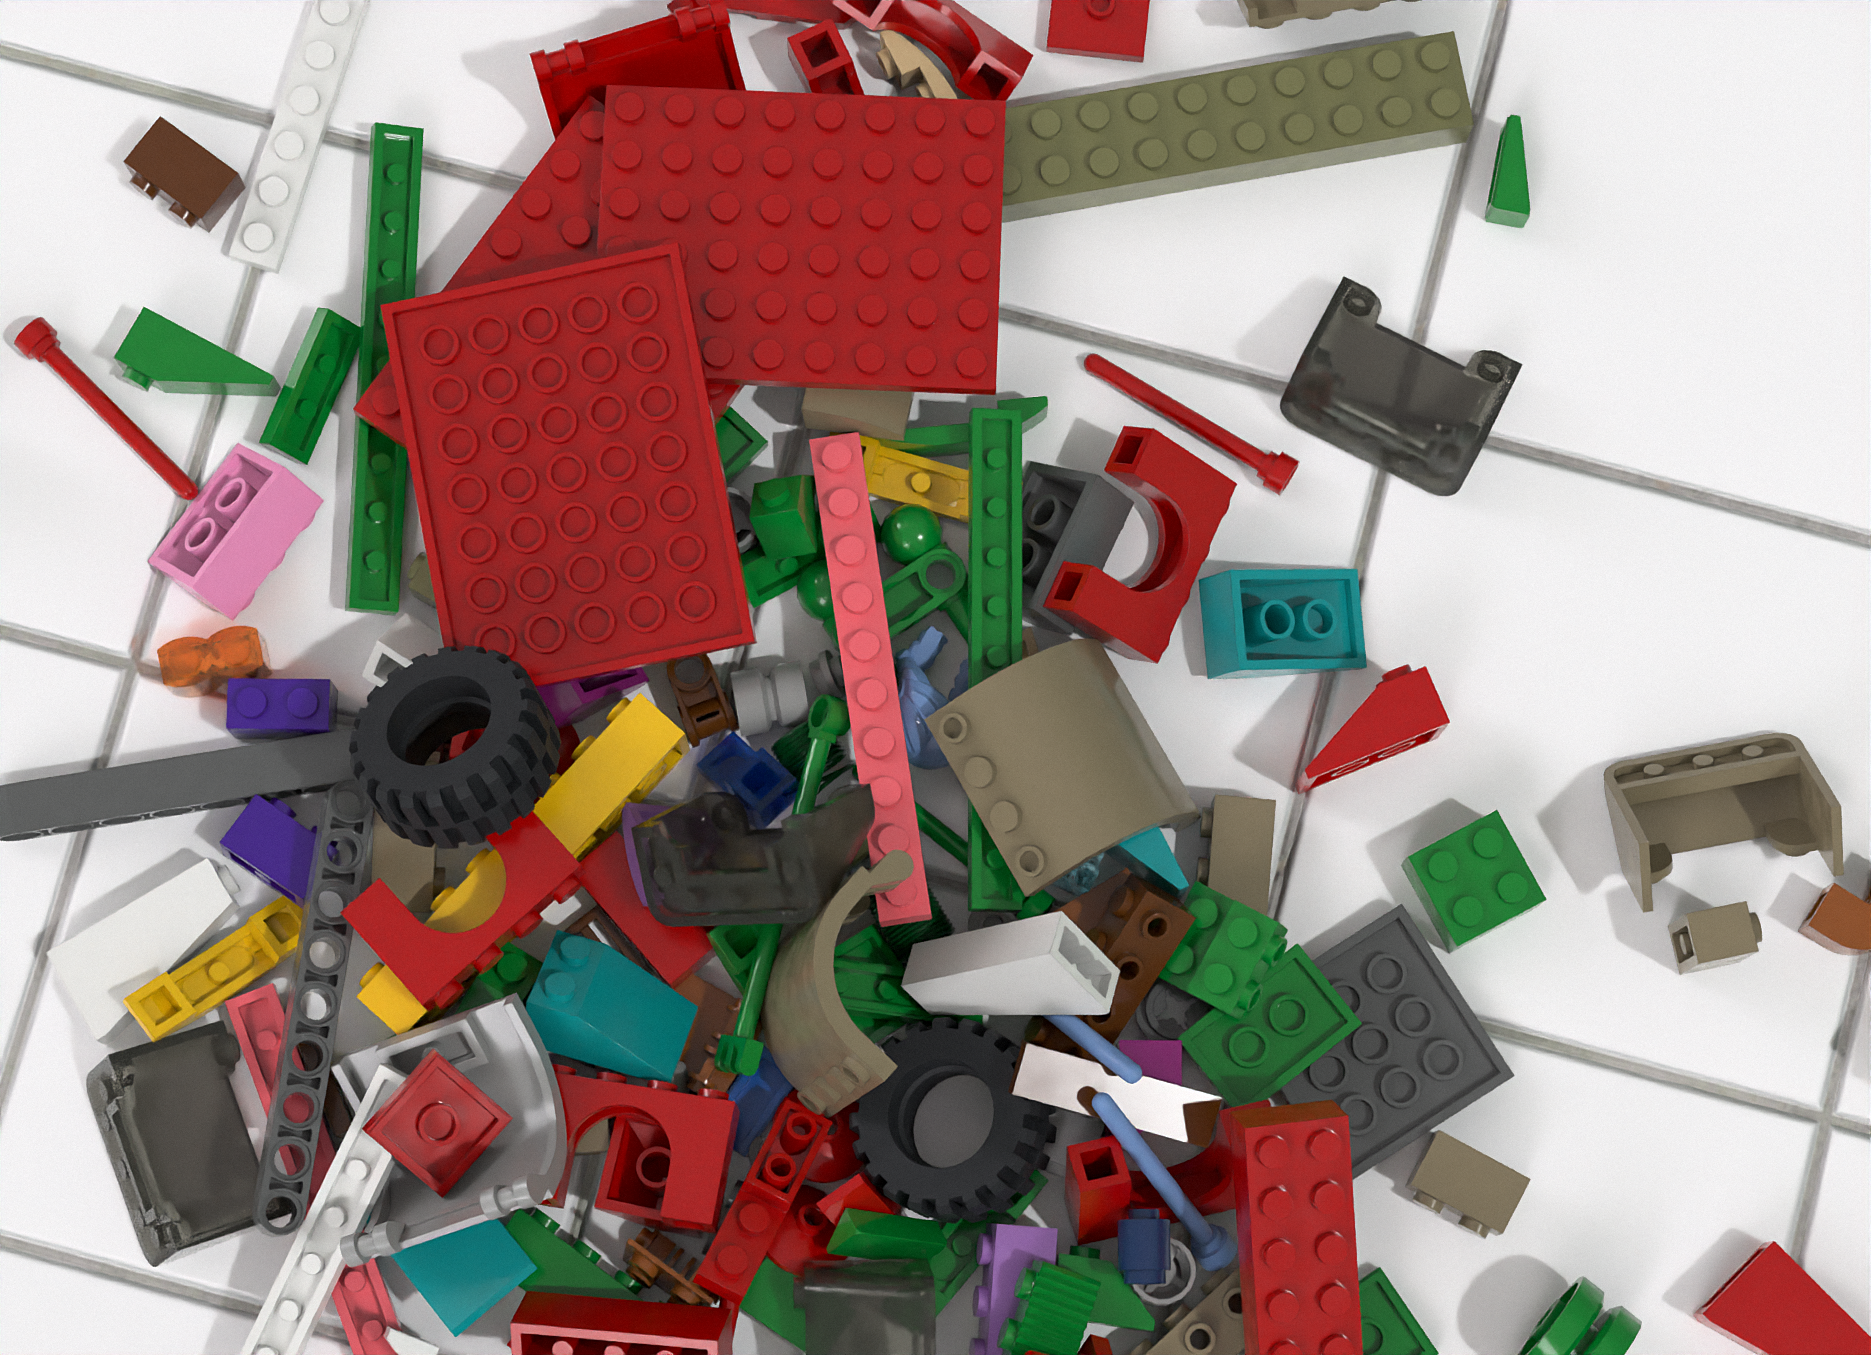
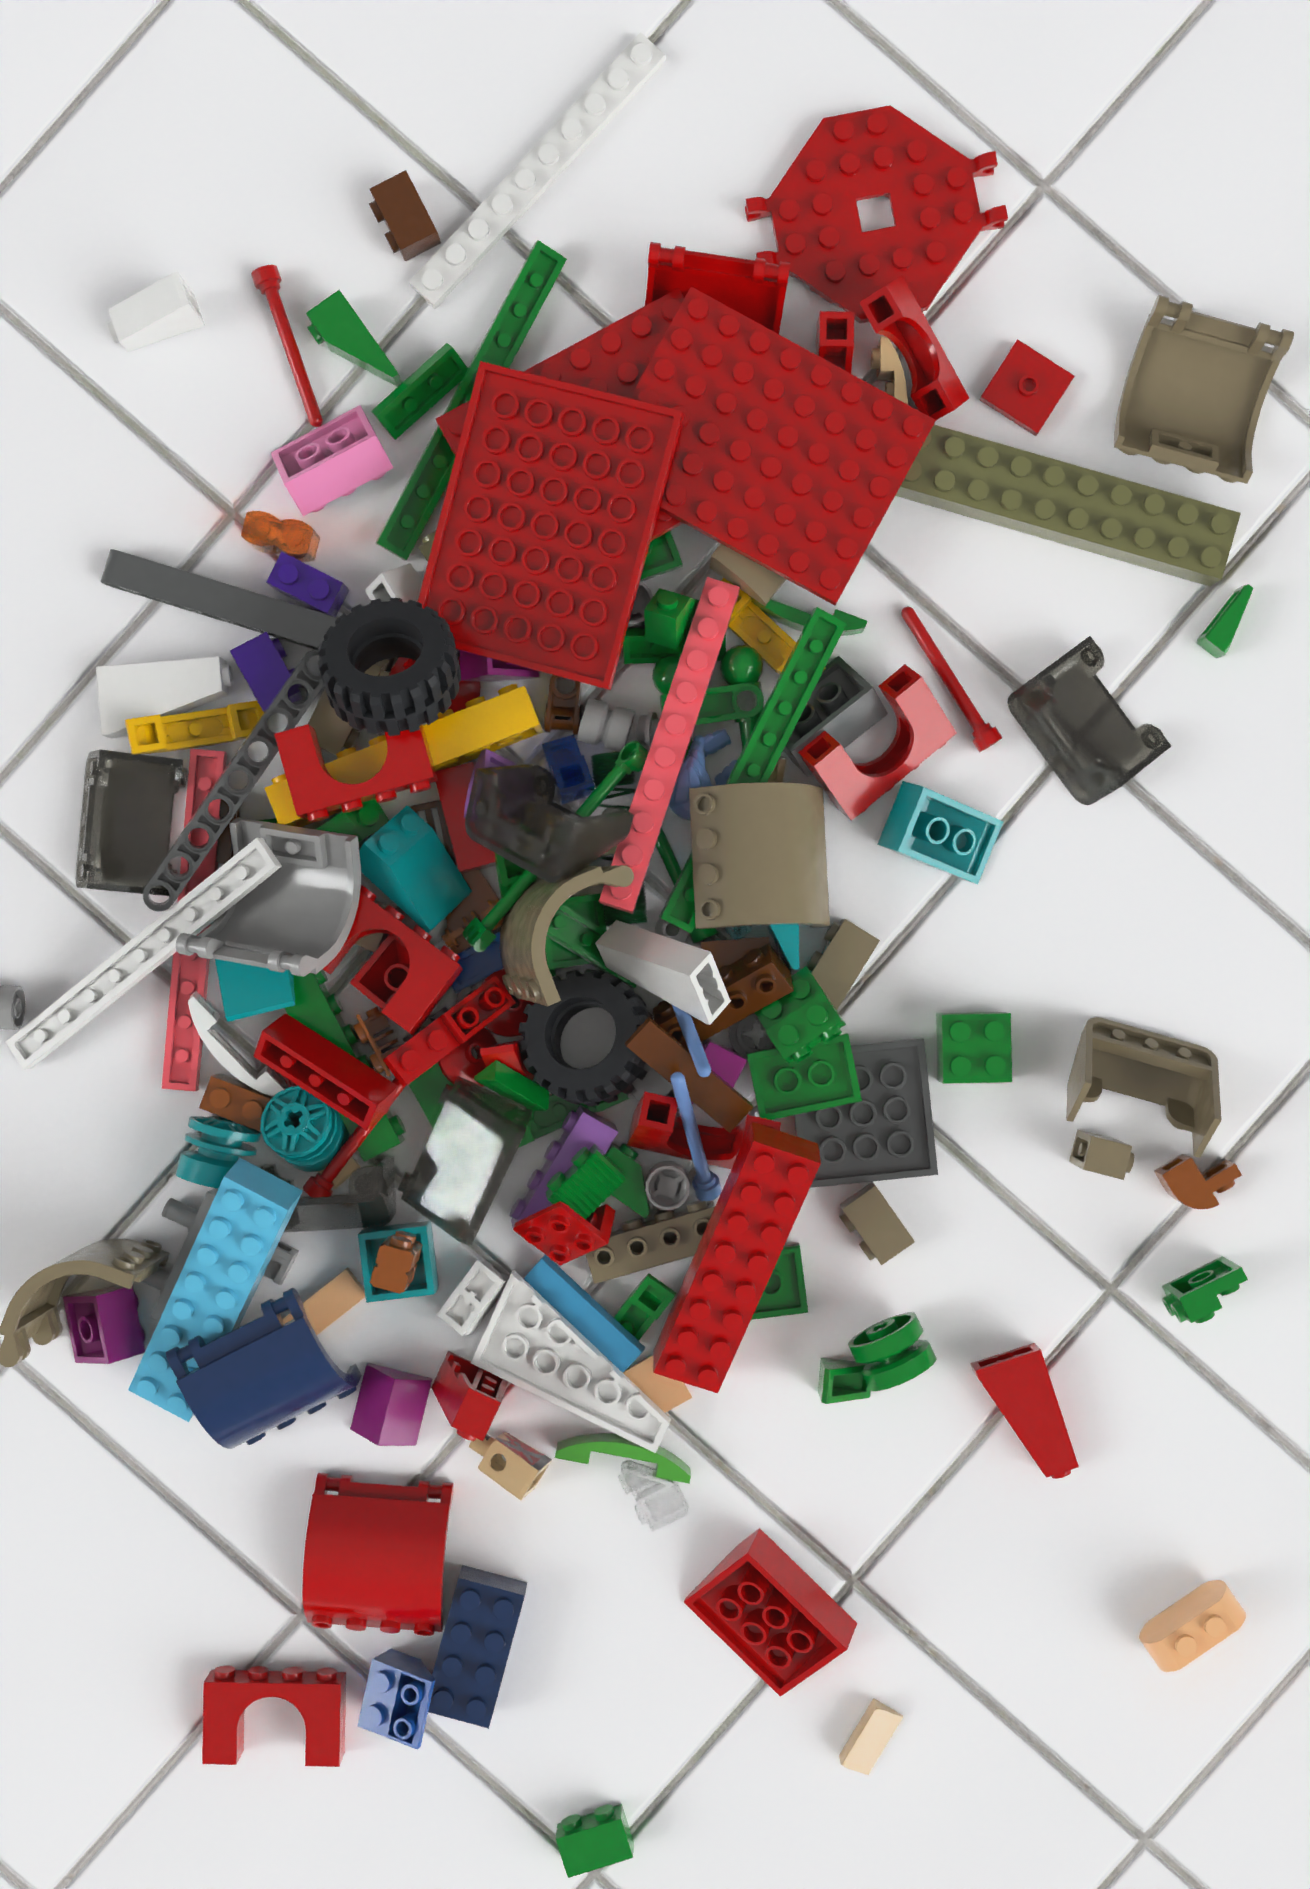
camera: 30 degrees right, 10 degrees up
(437, 1123) = (273, 890): red plate -> none
(1144, 1247) = (662, 1171): dark blue brick -> none
(1392, 720) = (975, 925): red slope -> none

